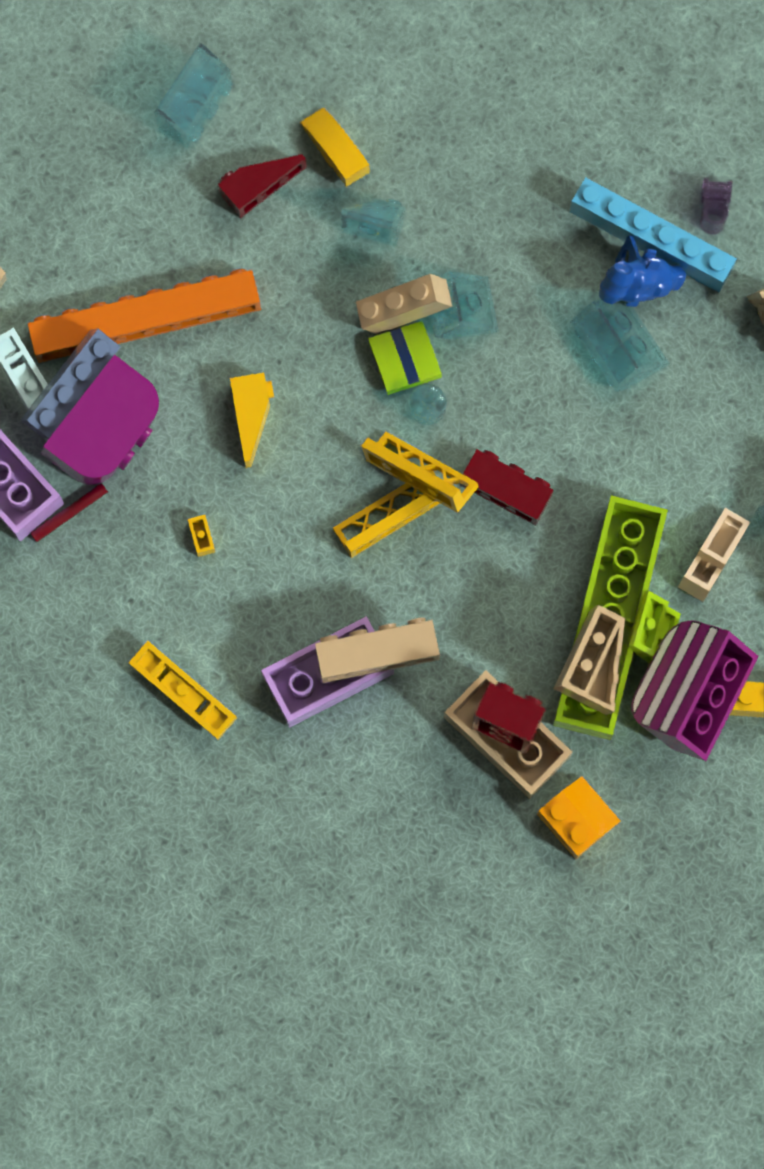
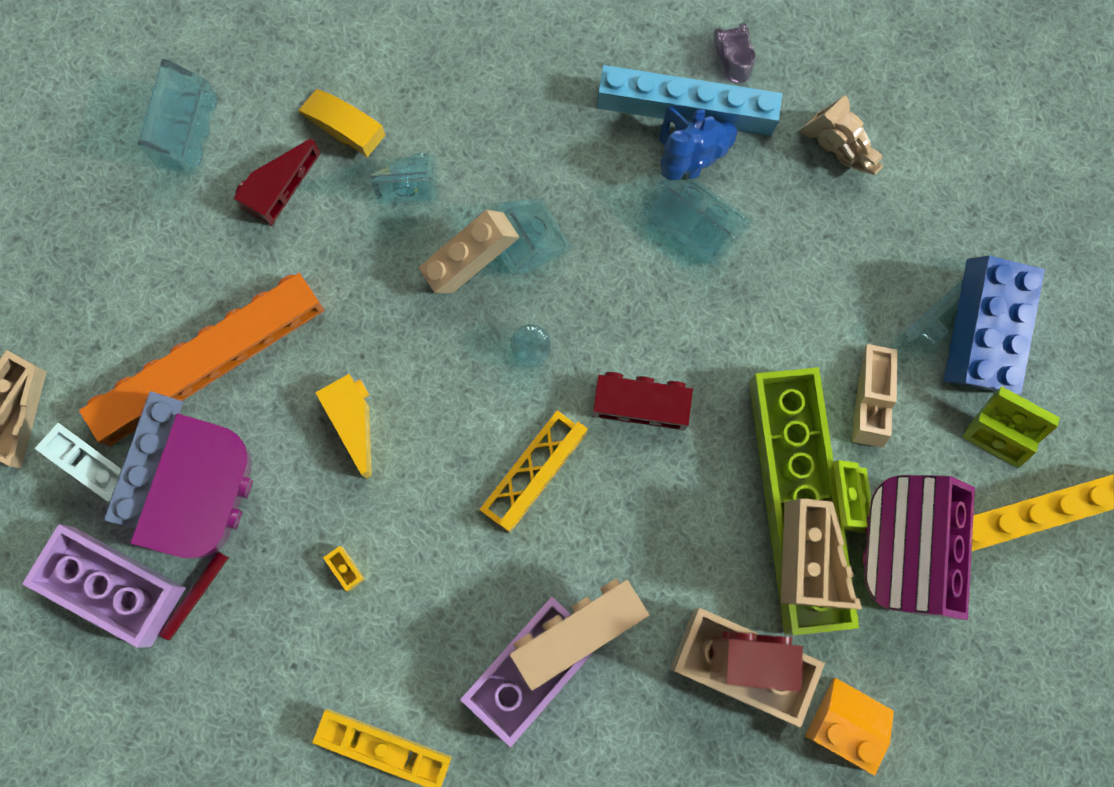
camera: 25 degrees left, 0 degrees up
(405, 357) = (489, 307): lime slope -> none
(419, 476) = (549, 425): yellow fence -> none

